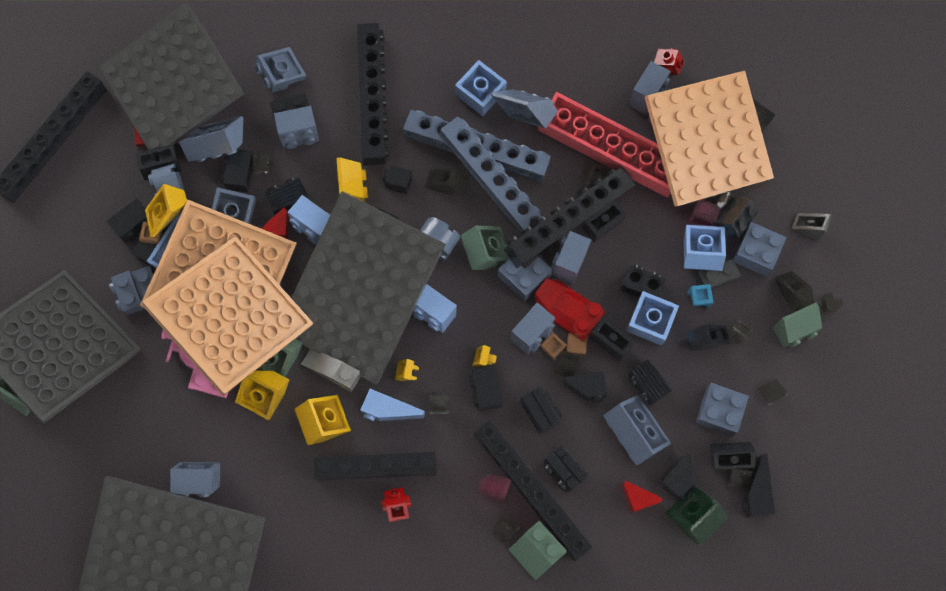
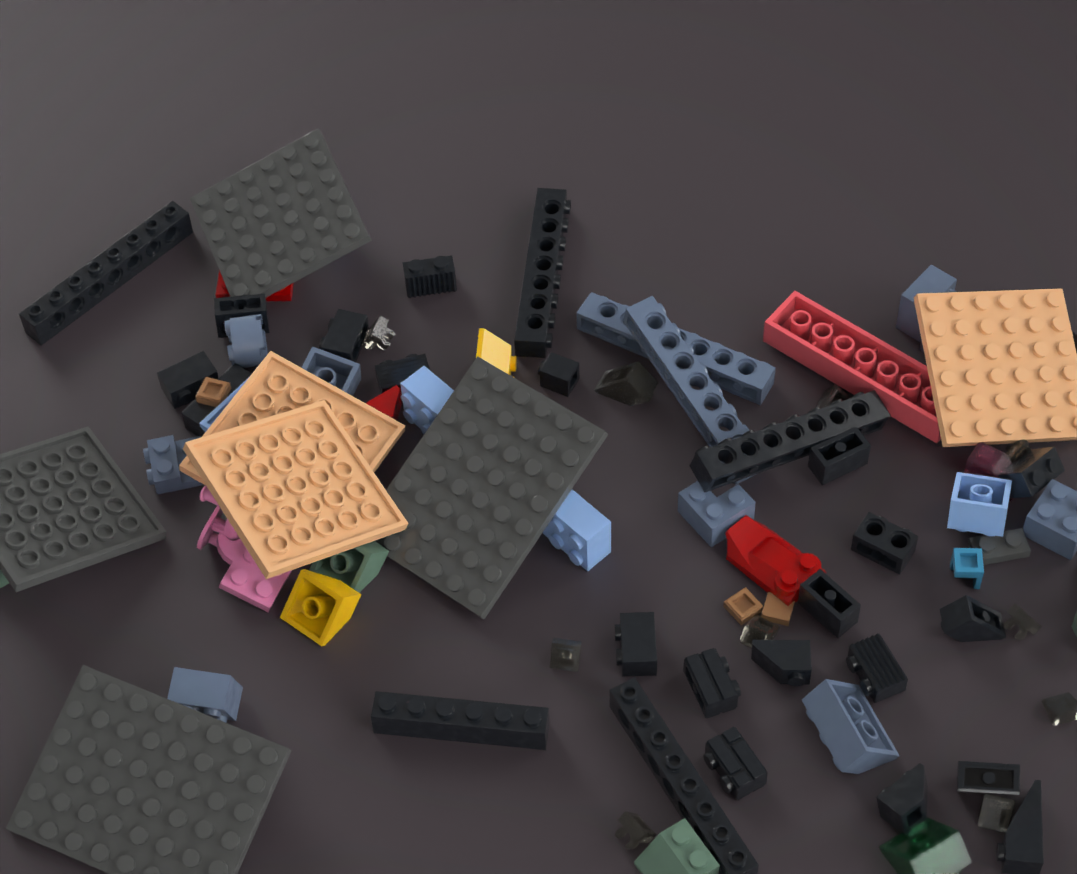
camera: 15 degrees right, 20 degrees down
(164, 208) = (237, 360): yellow slope -> none
(213, 140) = (318, 296): sand blue slope -> none
(279, 69) = (423, 230): sand blue plate -> none
(296, 127) = (433, 295): sand blue brick -> none
(322, 419) = (396, 651): yellow slope -> none
(332, 369) = (425, 593): light grey slope -> none
(386, 408) = (492, 651): light blue slope -> none
(396, 504) = (480, 780): red brick -> none
(404, 370) = (524, 607): yellow tile -> none
(440, 231) = (612, 451): sand blue brick -> none
(477, 86) = (691, 279): light blue brick -> none
(483, 357) = (640, 601): yellow tile -> none
(485, 247) = (663, 467): sand green slope -> none
(494, 487) = (629, 771): clear pink slope -> none
(526, 107) = (748, 302): sand blue slope -> none
(532, 328) = (715, 574): sand blue brick -> none
(570, 257) = (784, 492): sand blue brick -> none
(639, 498) = (841, 818): red slope -> none
(652, 318) = (892, 584): light blue brick -> none
(670, 59) = (965, 272): red brick -> none
(722, 409) = (980, 717): sand blue brick -> none

